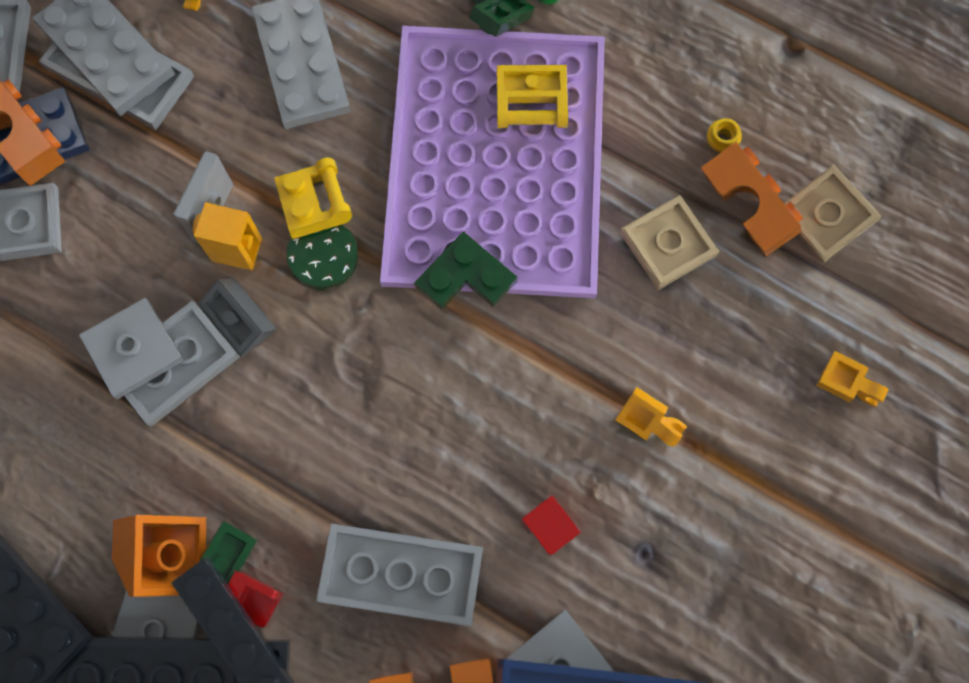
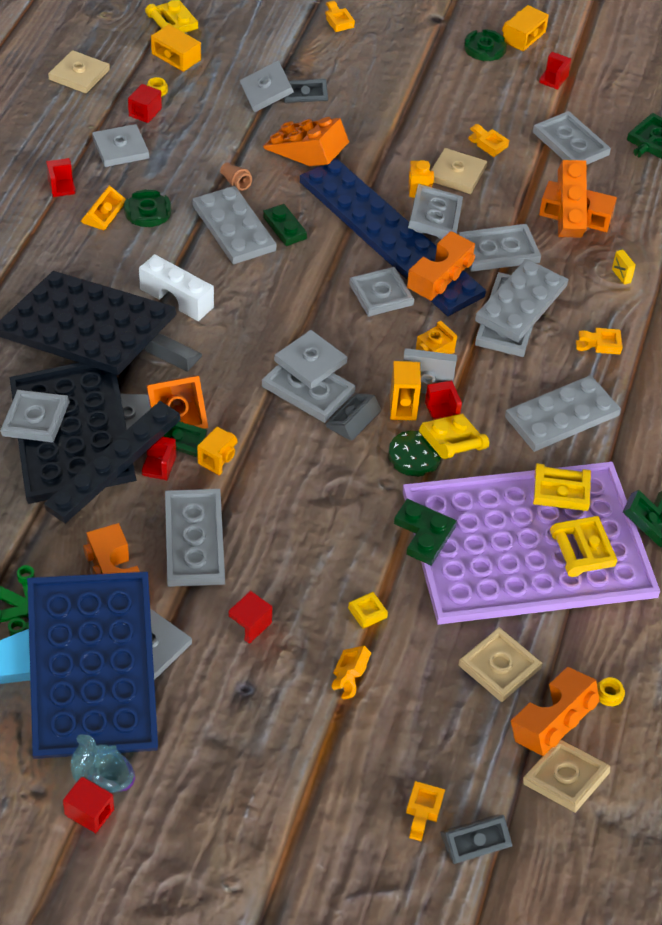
camera: 75 degrees right, 25 degrees down
(50, 536) = (173, 352): none -> dark grey slope
(143, 176) = (437, 339): none -> light orange brick
(252, 193) = (442, 400): none -> red panel
(258, 512) = (216, 450): none -> light orange brick
(446, 95) = (562, 487): none -> yellow plate
(557, 375) = (368, 610): none -> yellow tile
(885, 333) = (476, 838): none -> dark grey slope

